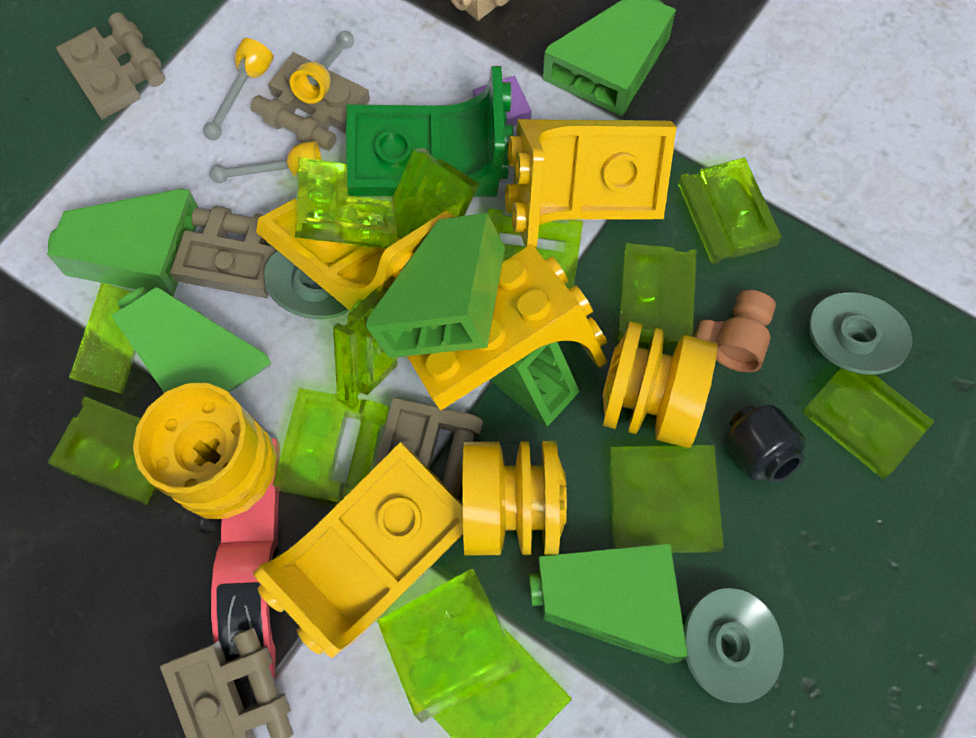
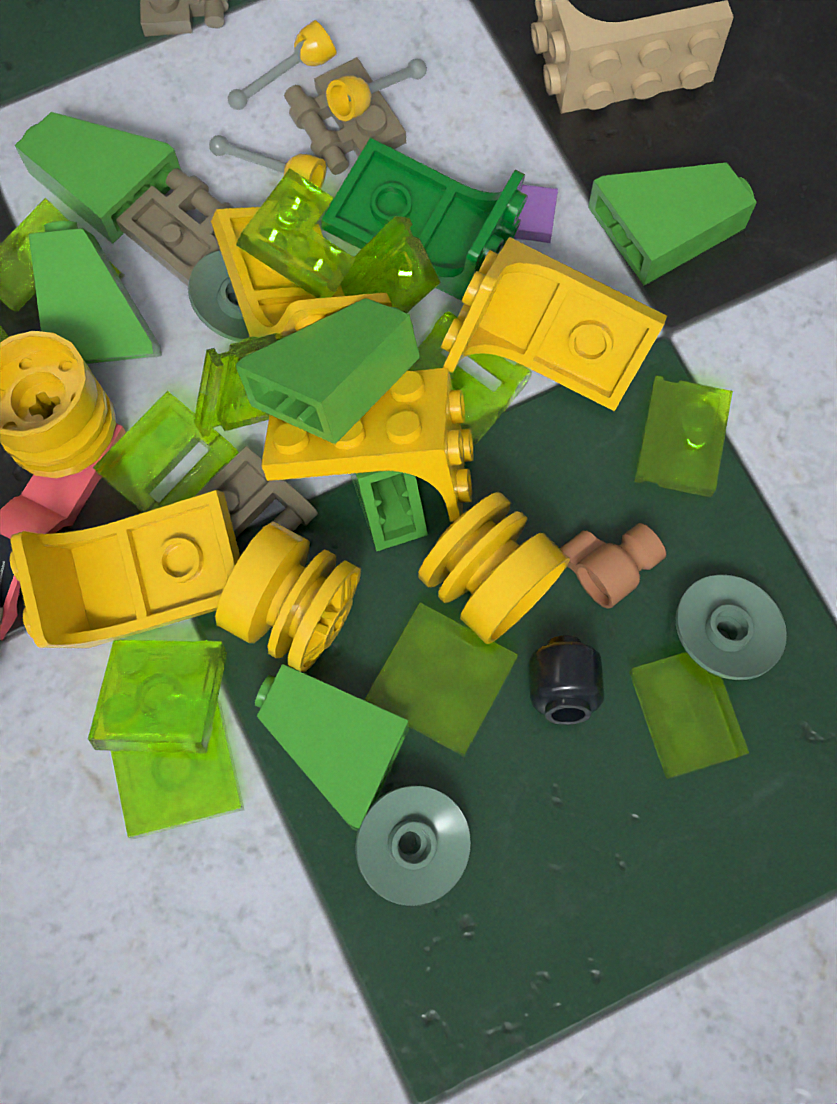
camera: 30 degrees right, 5 degrees up
(657, 291) = (559, 480): clear neon green plate -> none

